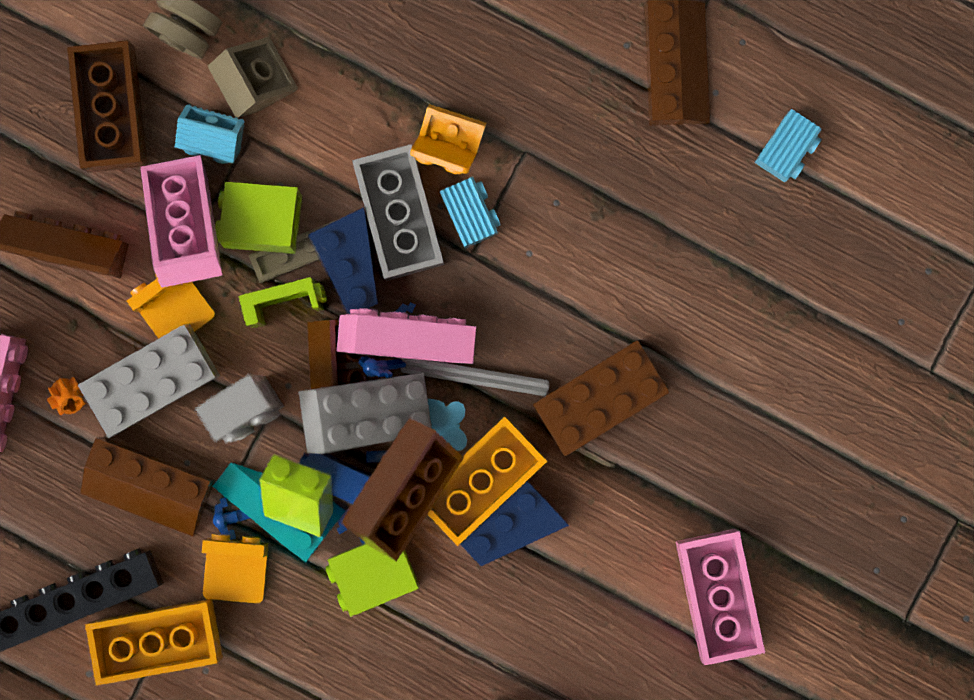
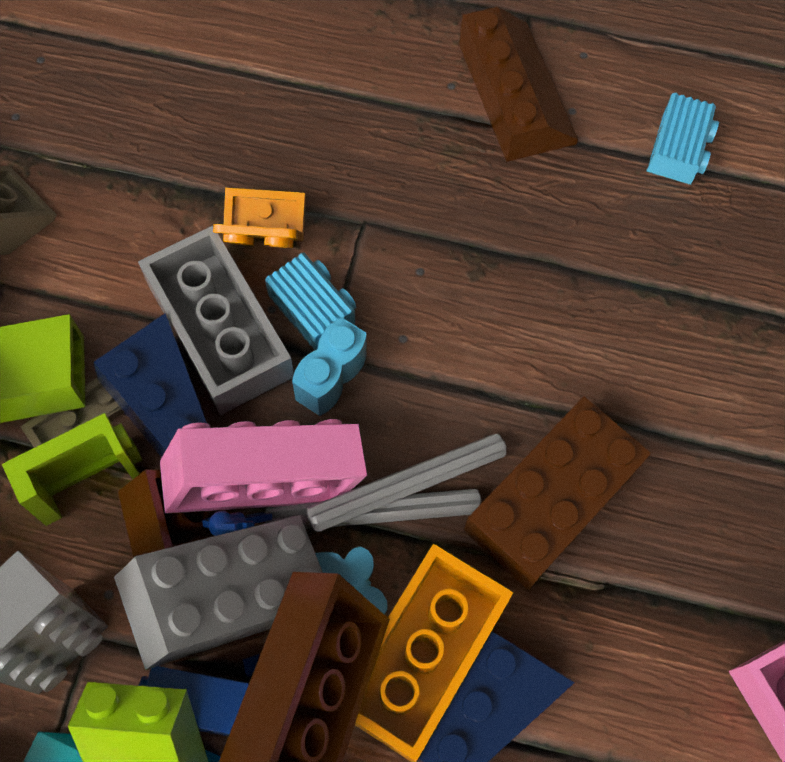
camera: 25 degrees left, 20 degrees down
(477, 262) = (323, 372): none -> medium azure brick
(502, 365) = (405, 482): none -> light grey axle

